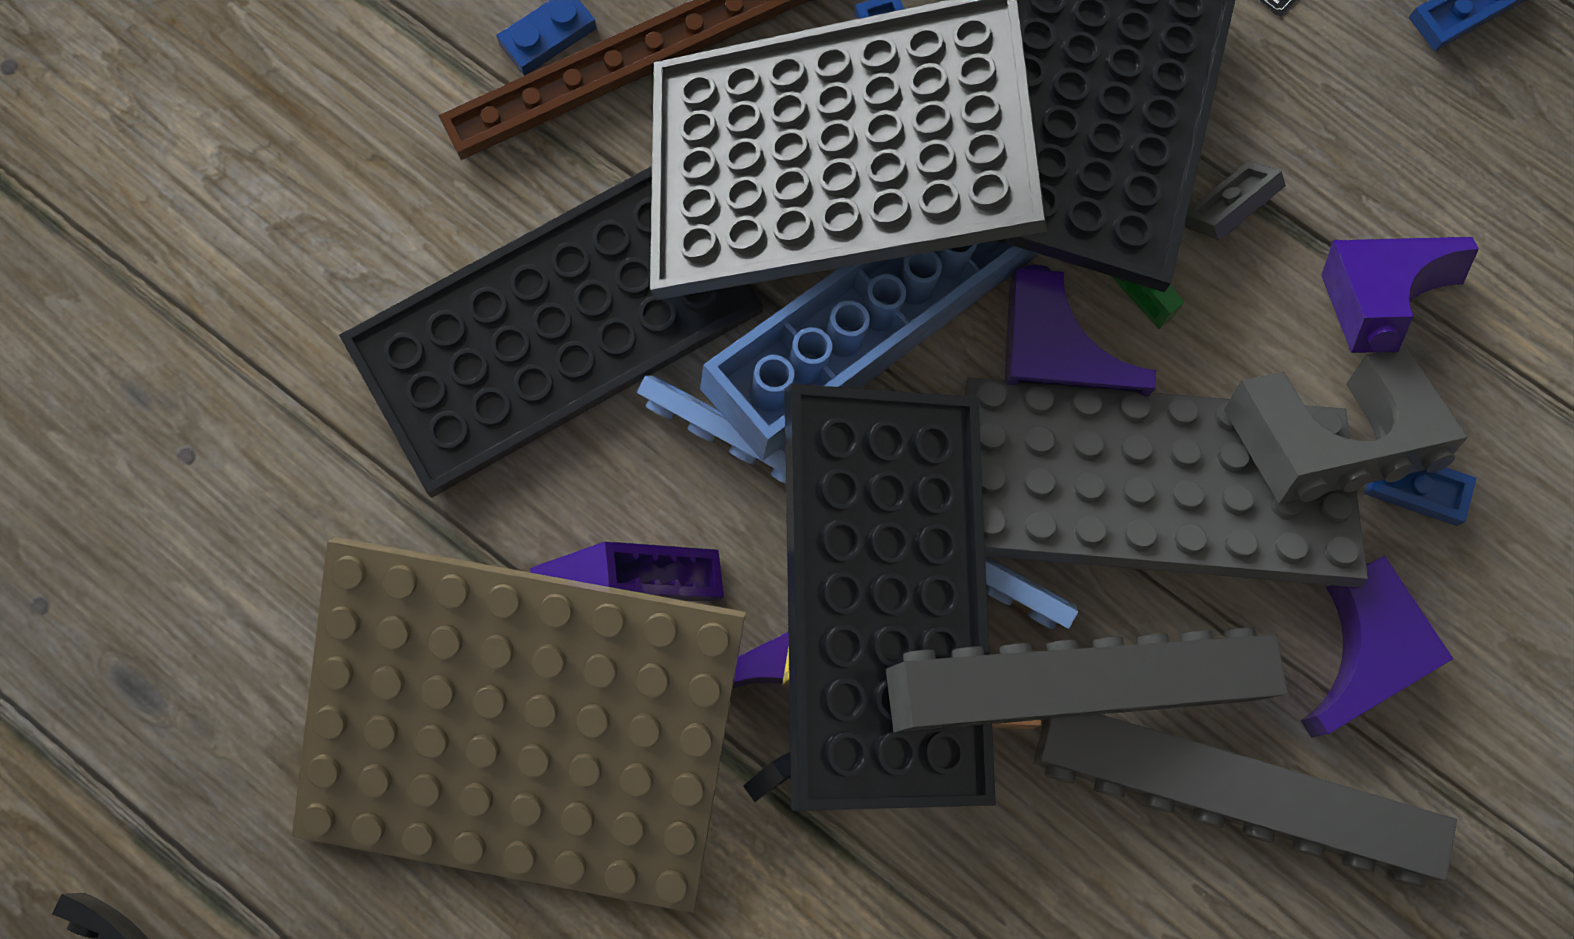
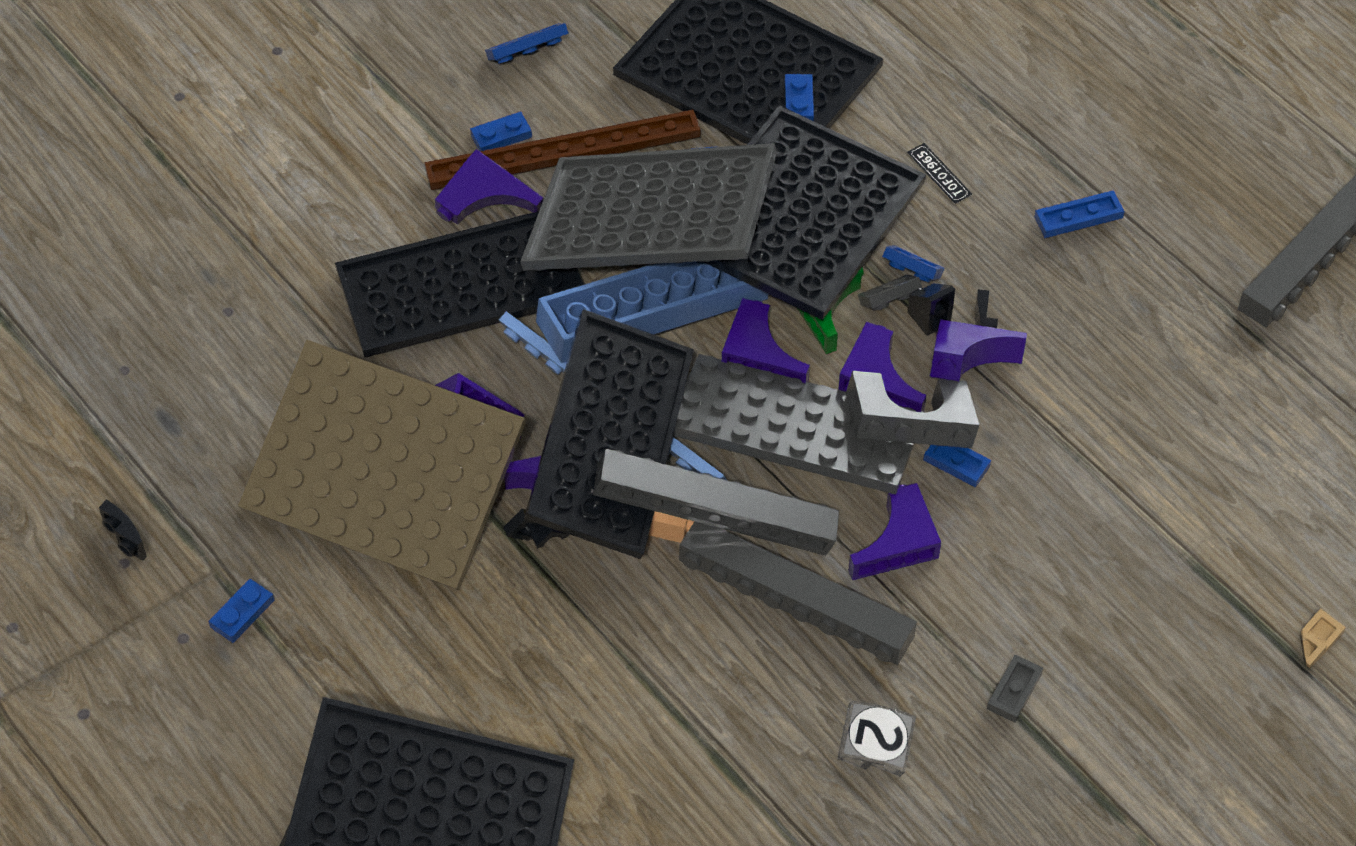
camera: 15 degrees right, 20 degrees down
(540, 141) = (483, 184): none -> dark purple arch
(1245, 343) = (872, 354): none -> dark purple arch
(1270, 145) = (904, 259): none -> blue plate
(1310, 214) = (930, 305): none -> black slope
(1385, 209) = (981, 310): none -> black slope

